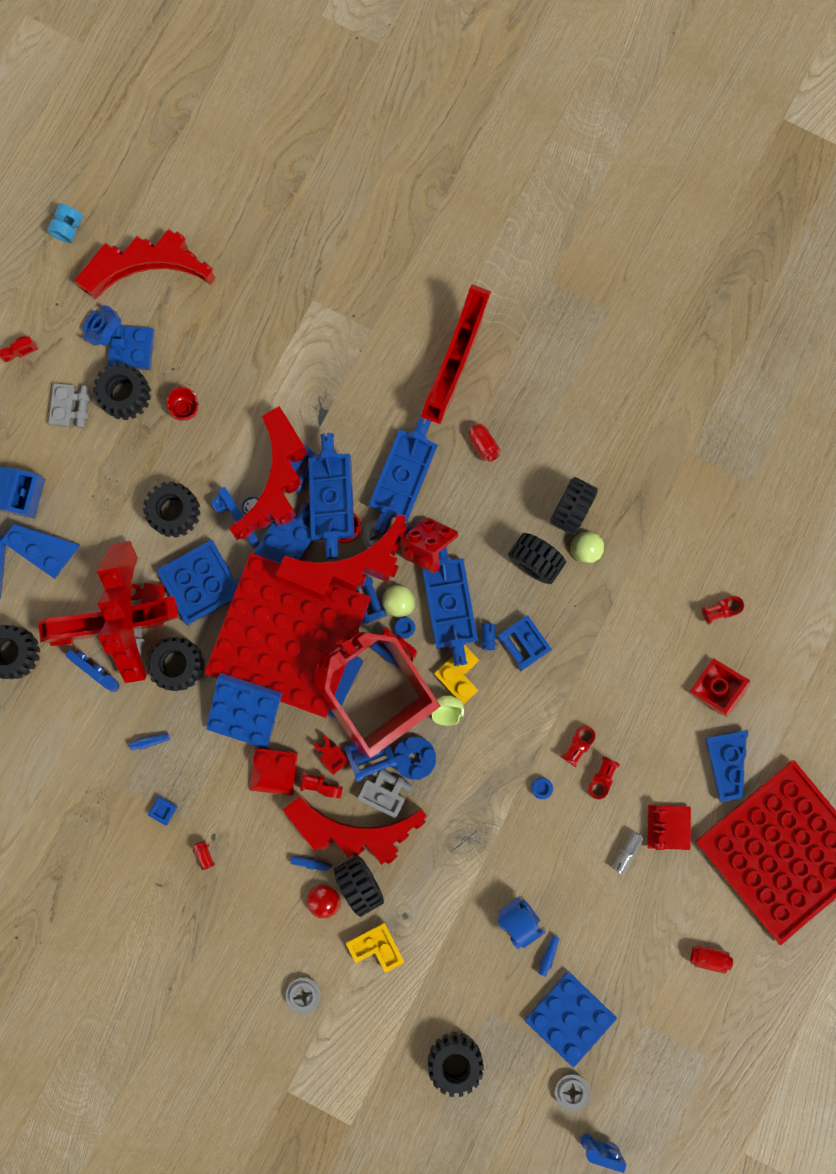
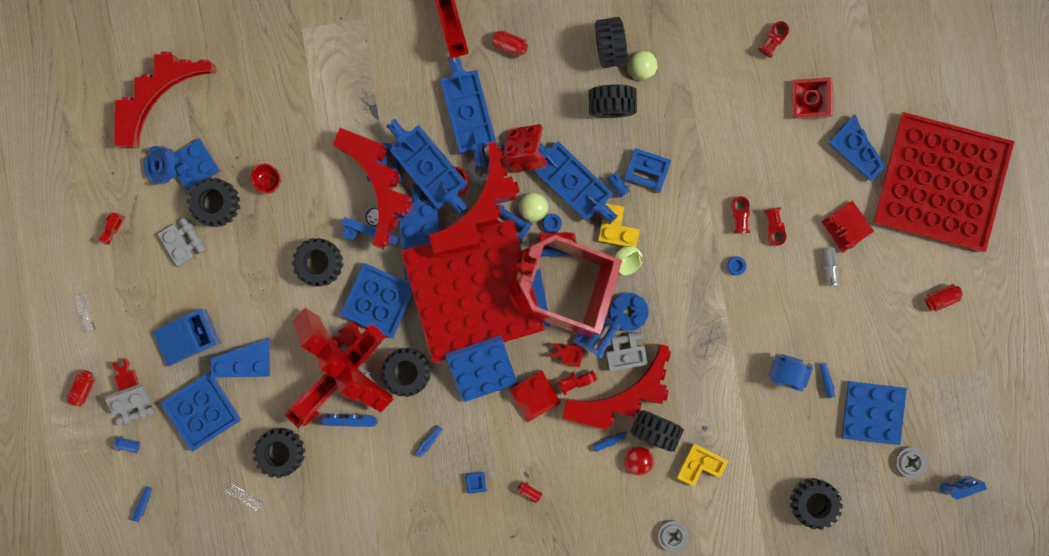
camera: 30 degrees left, 5 degrees up
(65, 223) = (72, 107): dark azure wheel -> none

